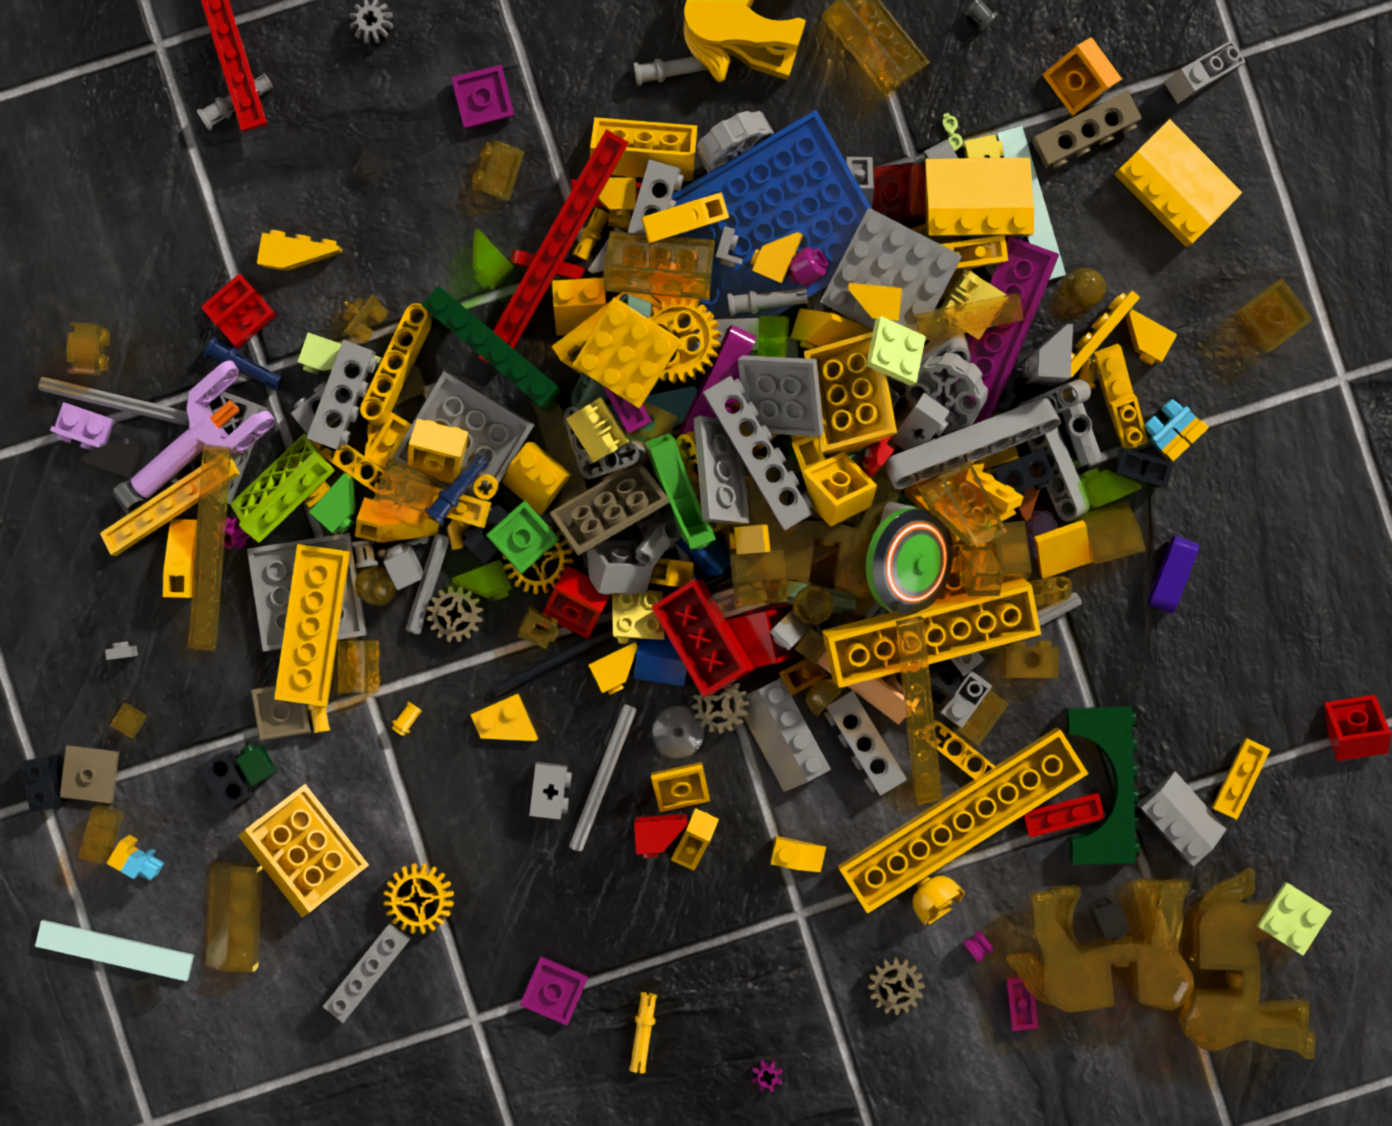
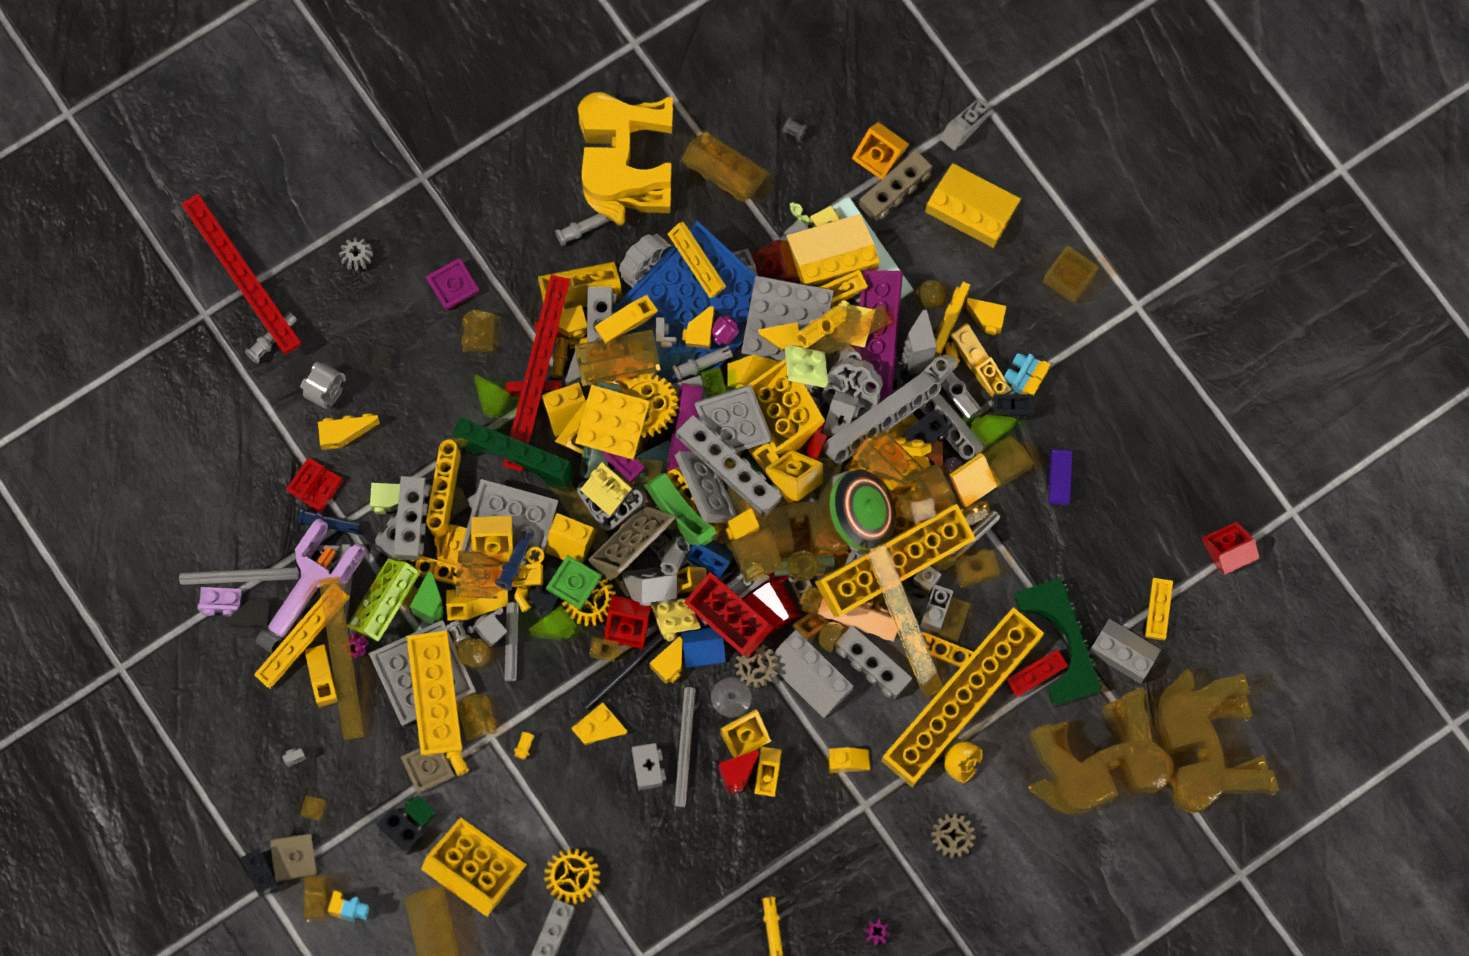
camera: 20 degrees left, 15 degrees down
(87, 348) = (210, 541): clear yellow brick -> none
(281, 185) = (323, 385): none -> light grey brick
(357, 326) = (412, 455): clear yellow hips -> none
(452, 627) = (546, 656): dark tan gear -> none
(554, 990) = (695, 916): magenta plate -> none
(789, 630) = (791, 591): light grey slope -> none
(799, 163) = (696, 260): none -> yellow plate
(931, 302) = (821, 326): none -> yellow piece
(978, 946) = (1005, 788): magenta wheel -> none
(1021, 1005) = (1051, 823): magenta plate -> none
(1294, 918) = (1228, 690): yellowish green plate -> none

